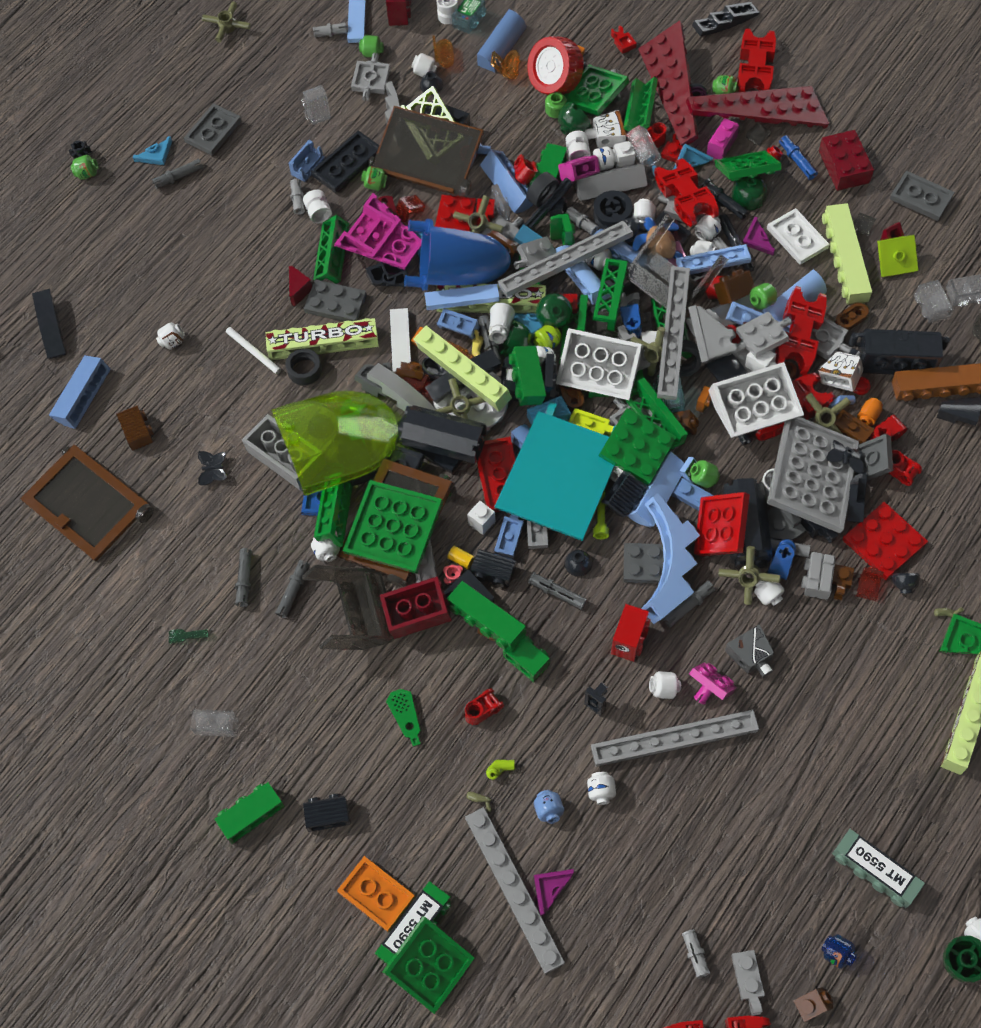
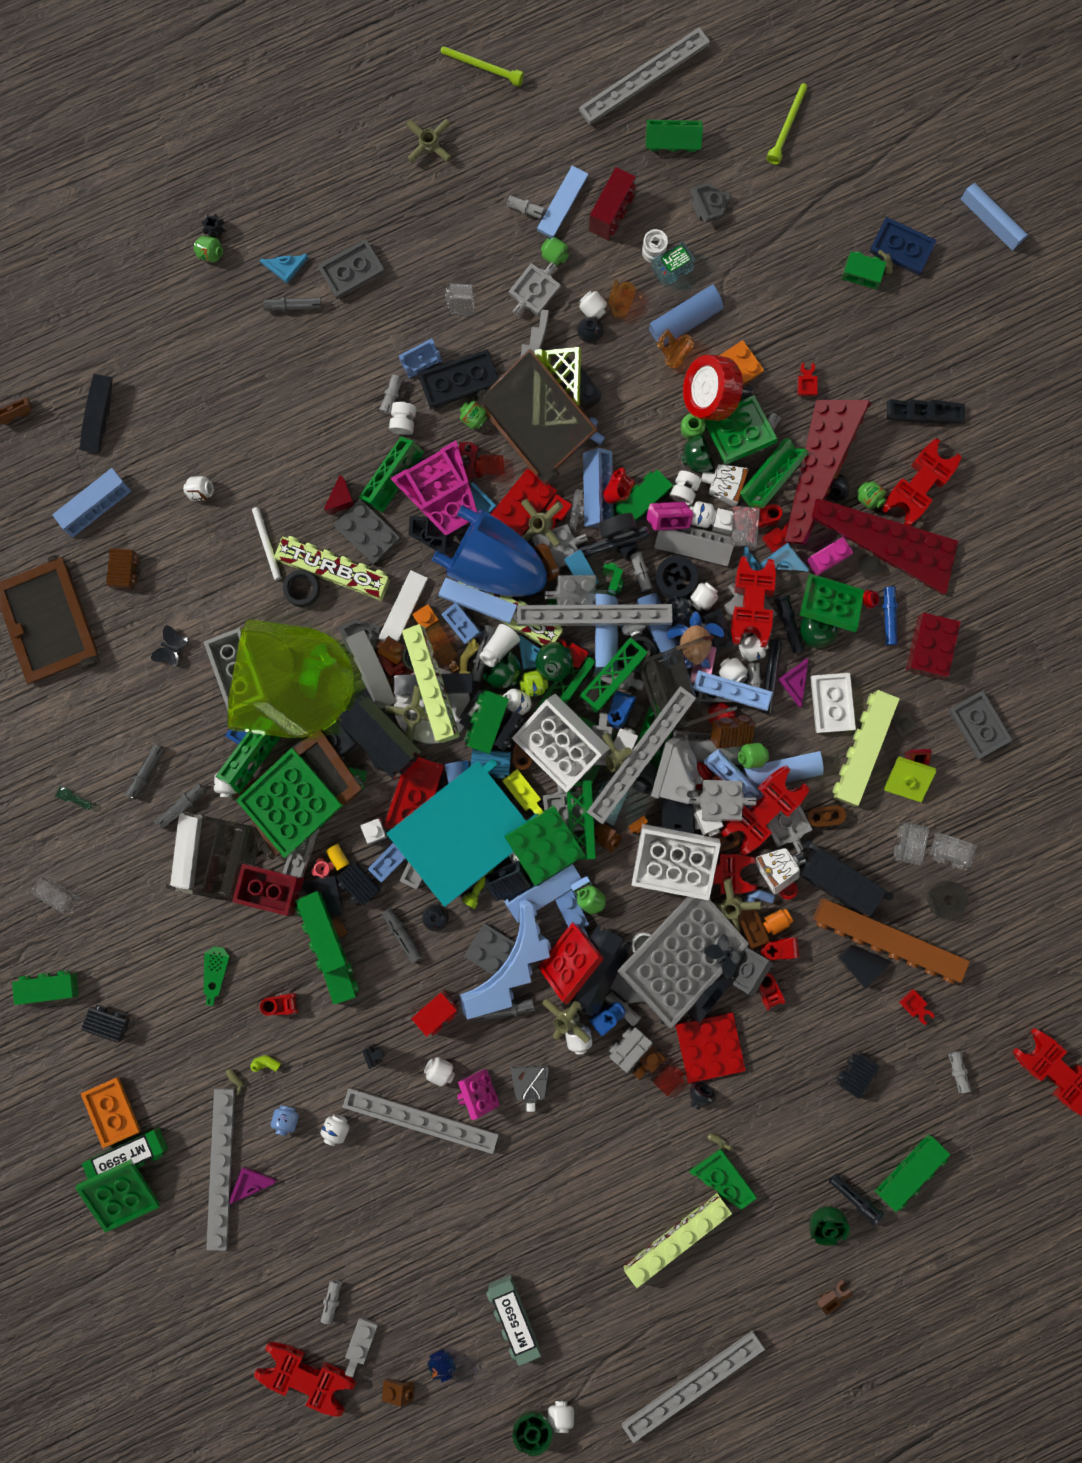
camera: 30 degrees right, 20 degrees up
(317, 623) = (186, 851): none -> white panel

